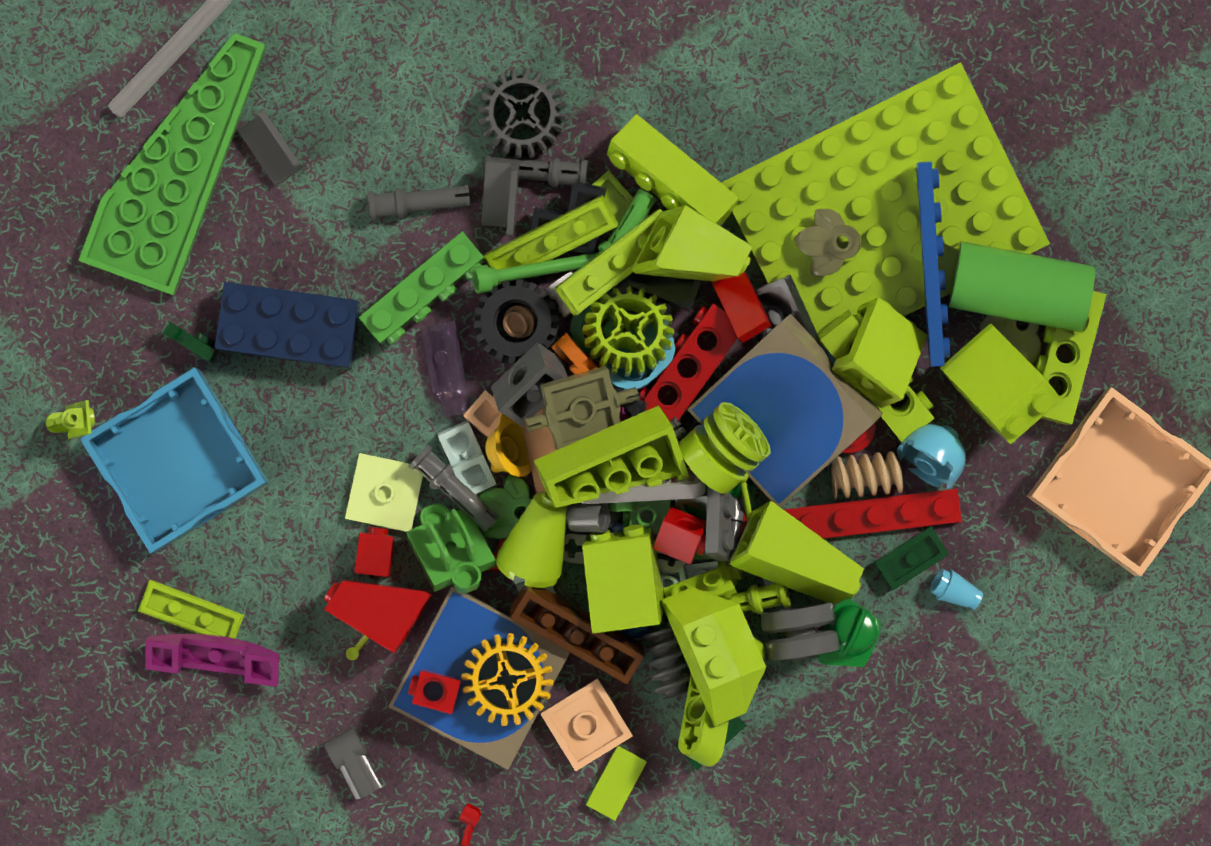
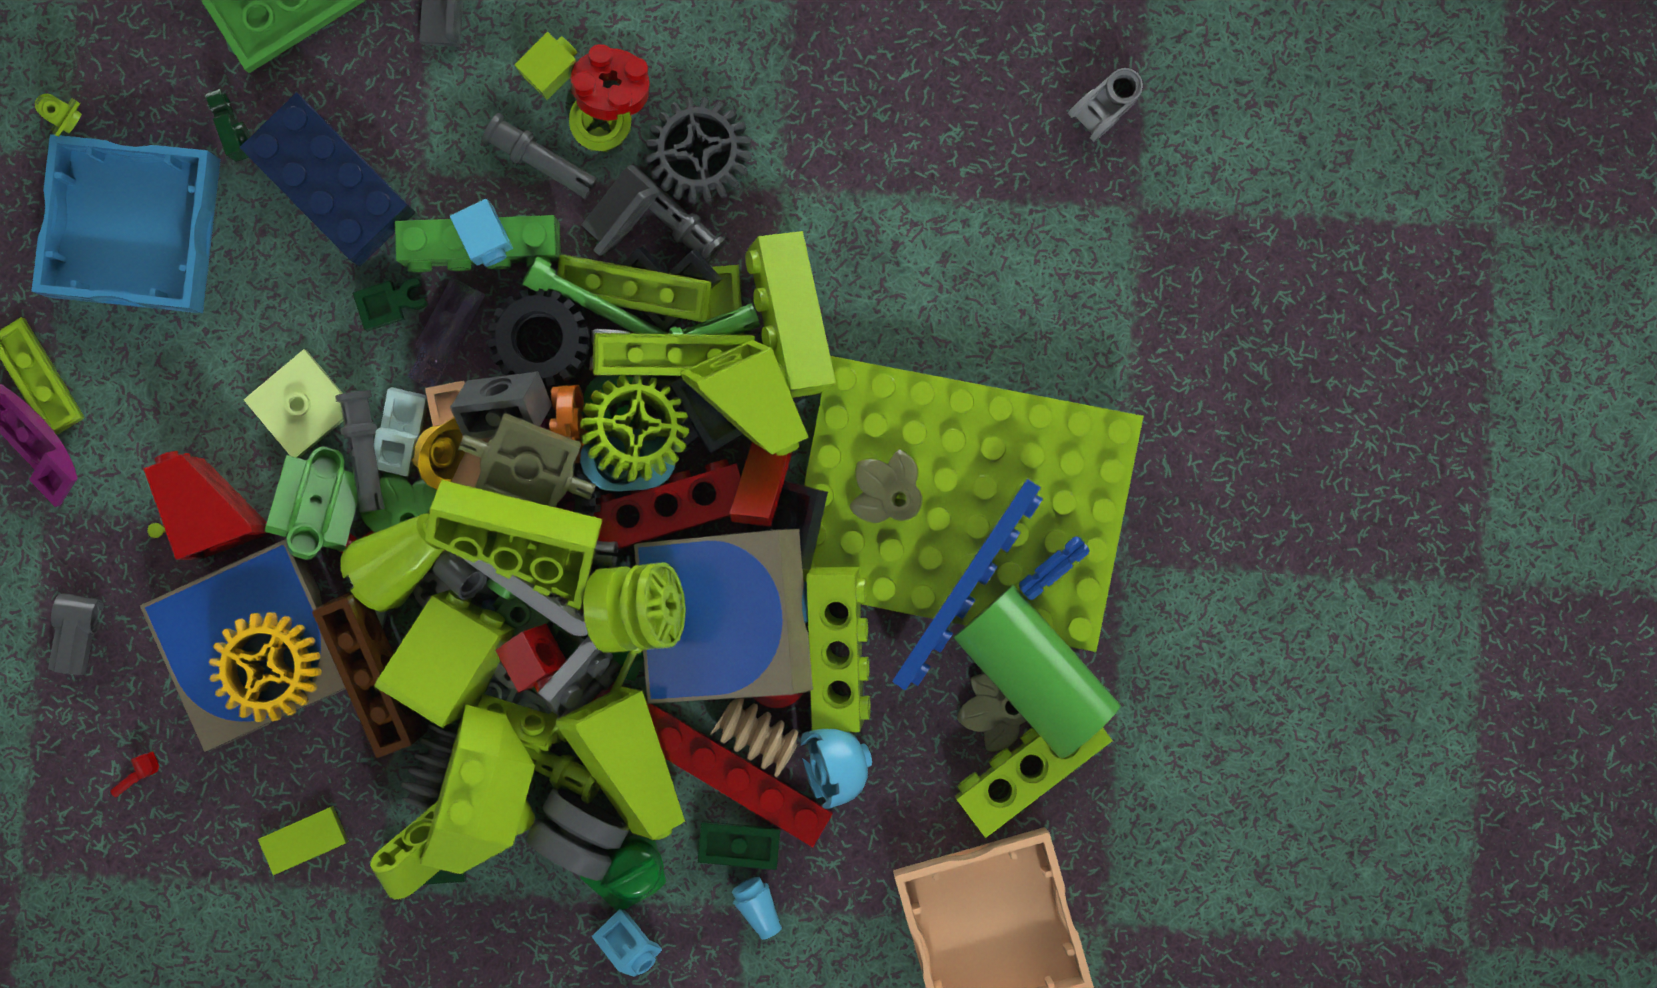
camera: 50 degrees right, 0 degrees up
(375, 133) = (547, 64): none -> lime brick
(375, 552) = (244, 453): red brick -> none
(388, 382) = (383, 304): none -> dark green plate
(425, 97) = (610, 64): none -> red plate
(428, 279) = (482, 233): none -> medium azure brick
(429, 132) = (598, 139): none -> lime gear
(450, 691) = (207, 627): red brick -> none
(519, 321) = (544, 340): light nougat plate -> none
(586, 724) = (316, 765): light nougat plate -> none
(882, 354) = (855, 633): lime panel -> none
(888, 682) = (626, 944): none -> medium azure bracket
(979, 209) = (1054, 568): none -> blue axle
(1000, 384) = (945, 749): lime slope -> none

